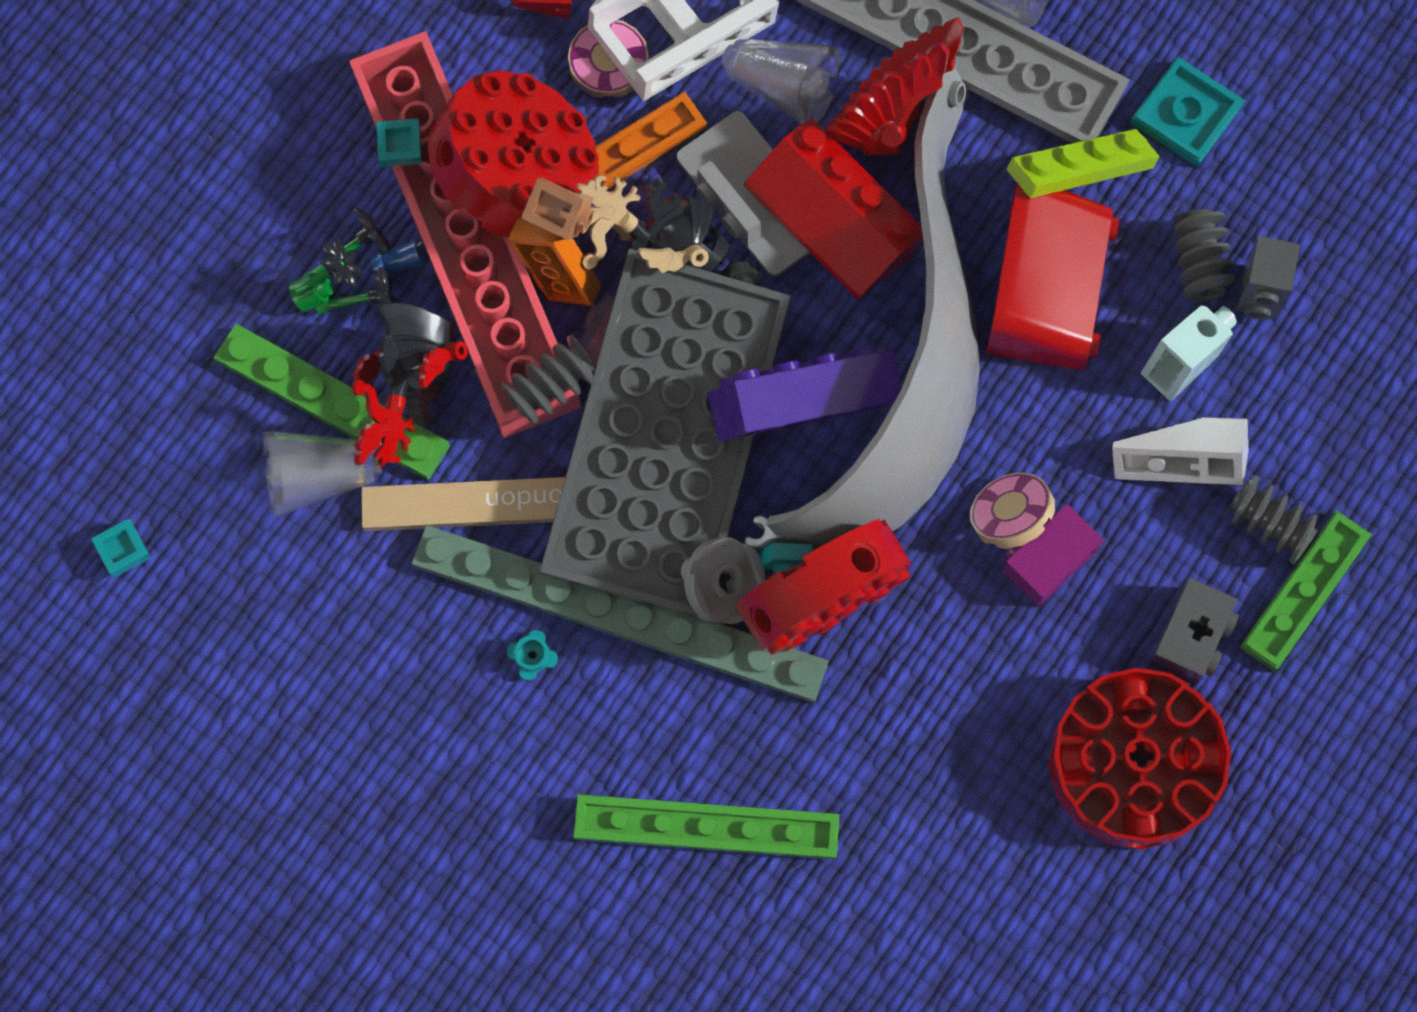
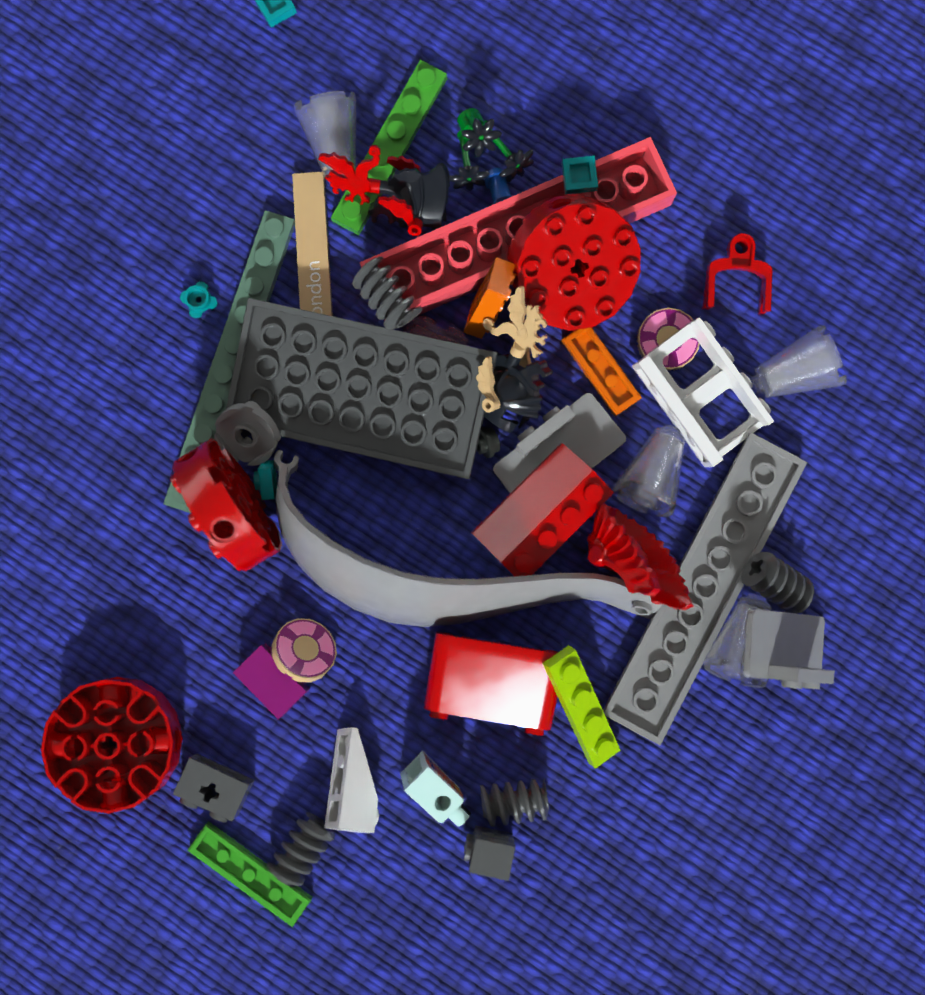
camera: 85 degrees right, 10 degrees up
(558, 209) = (512, 290): nougat bracket -> none
(706, 827) = (70, 428): bright green plate -> none
(804, 392) = (382, 490): dark purple brick -> none
(1187, 111) = (637, 792): teal tile -> none

